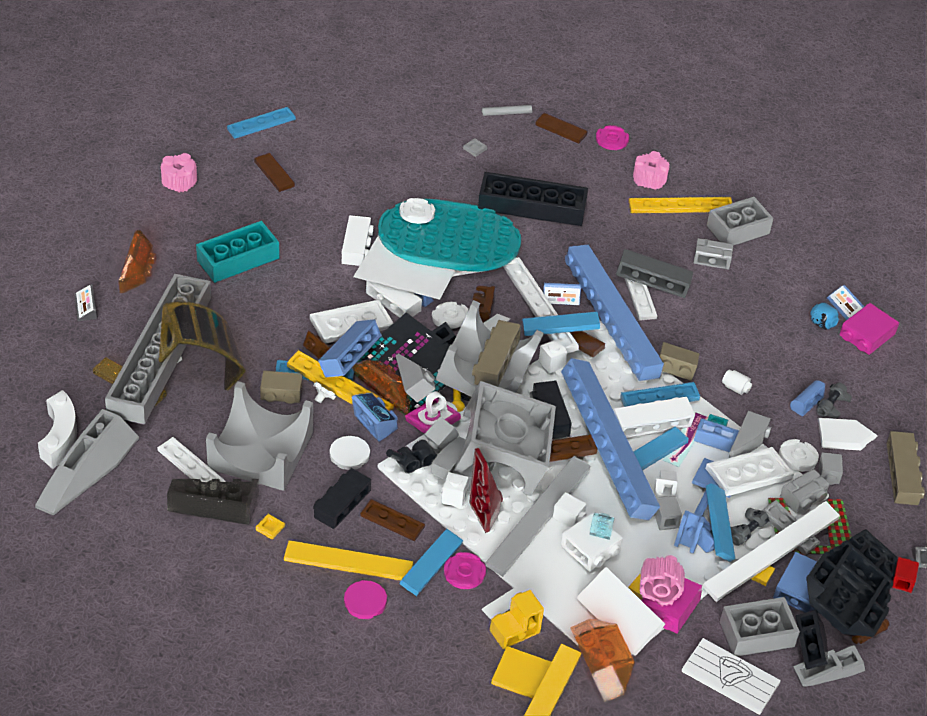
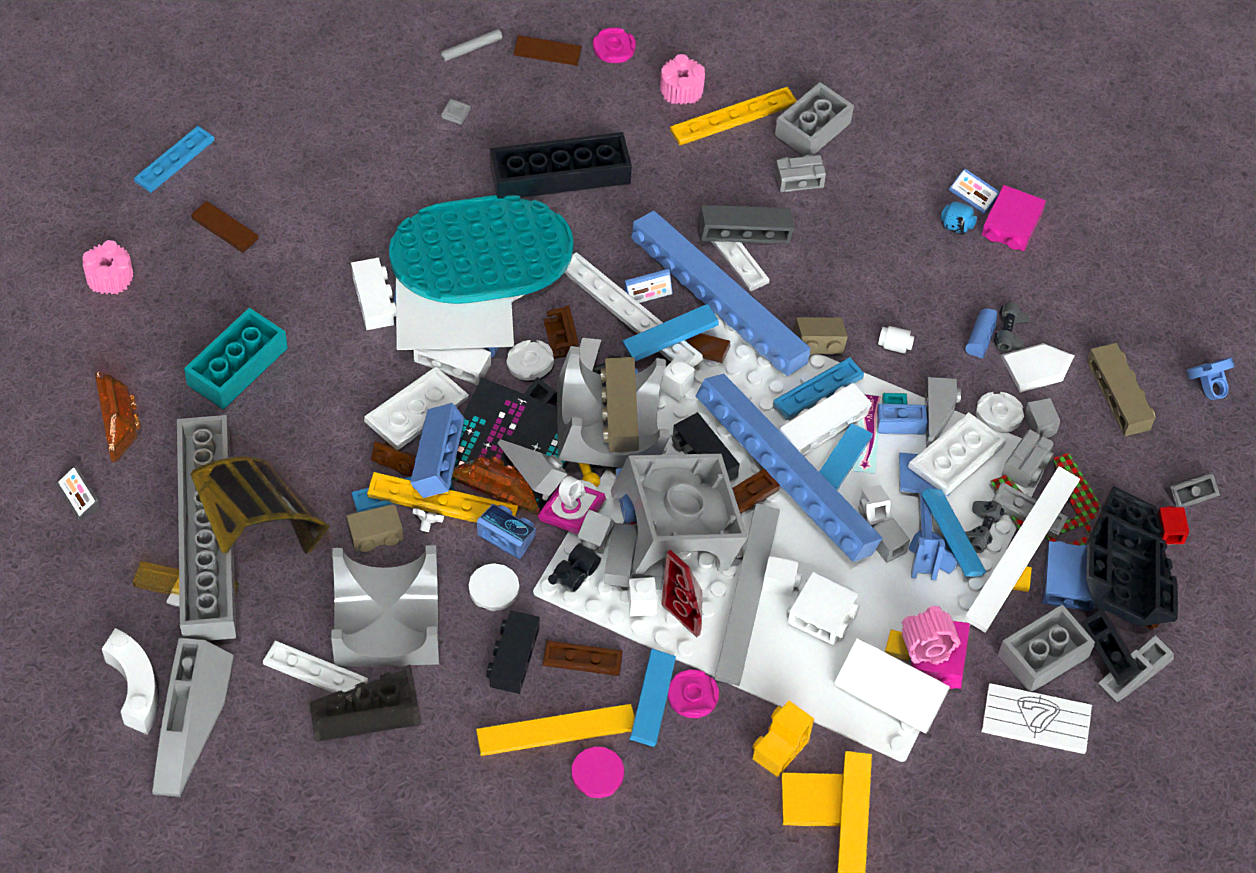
camera: 20 degrees left, 10 degrees up
(270, 526) = (445, 717): yellow tile -> none
(417, 211) = (429, 229): white tile -> none
(503, 603) = (756, 716): white sticker -> none
(602, 525) = (833, 588): clear light blue tile -> none
(605, 656) = (895, 745): clear orange wedge -> none

